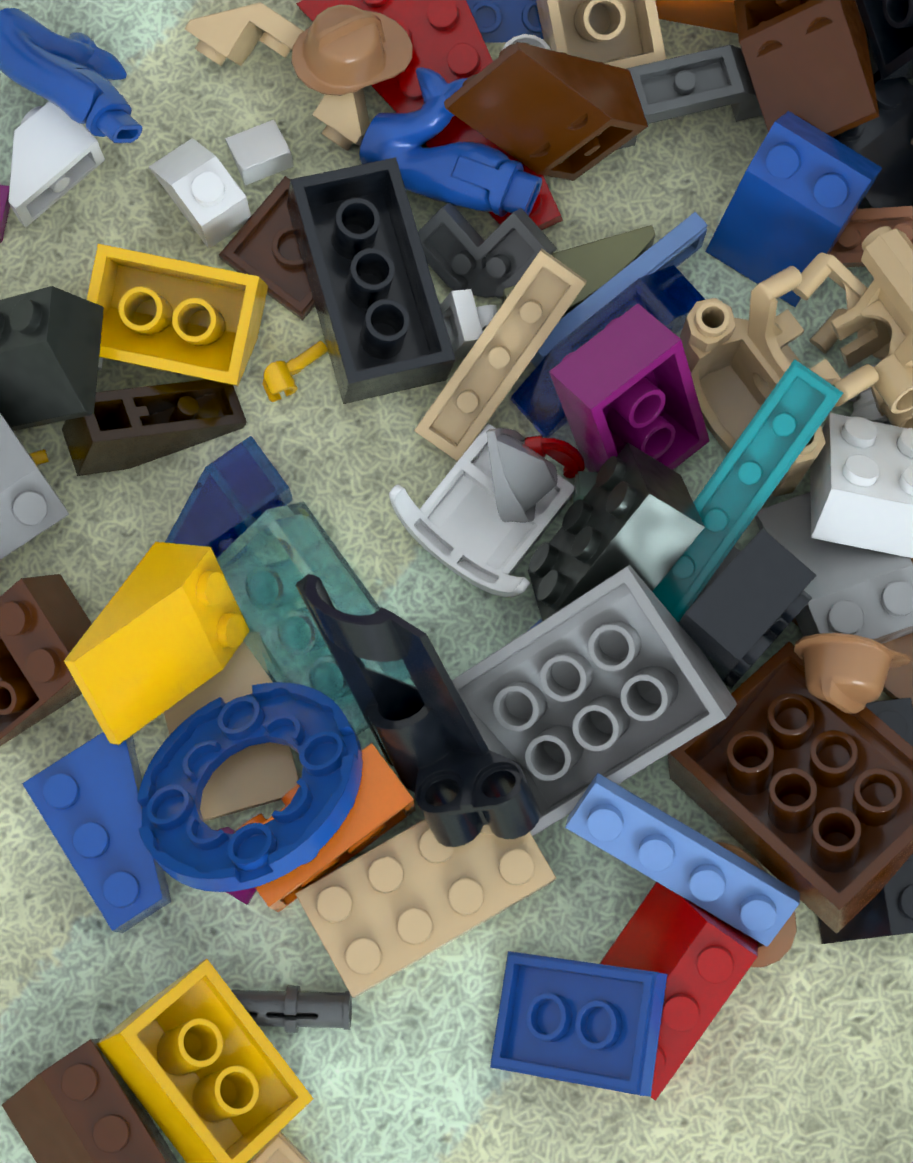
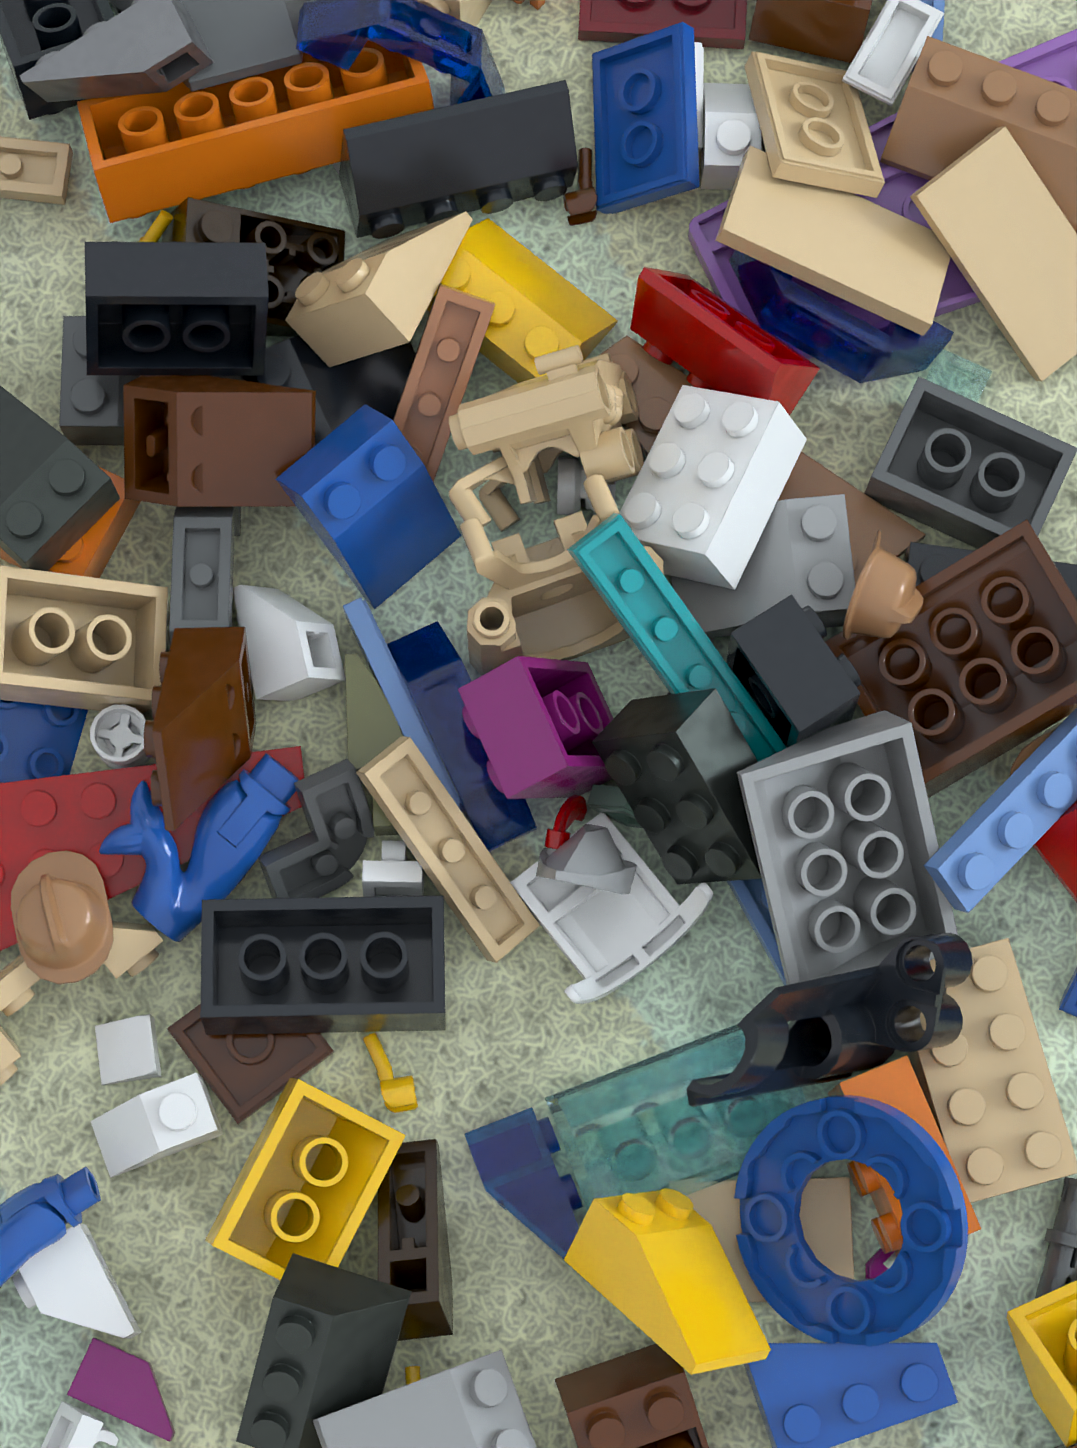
camera: 75 degrees left, 0 degrees up
(647, 177) = (288, 645): none -> white slope

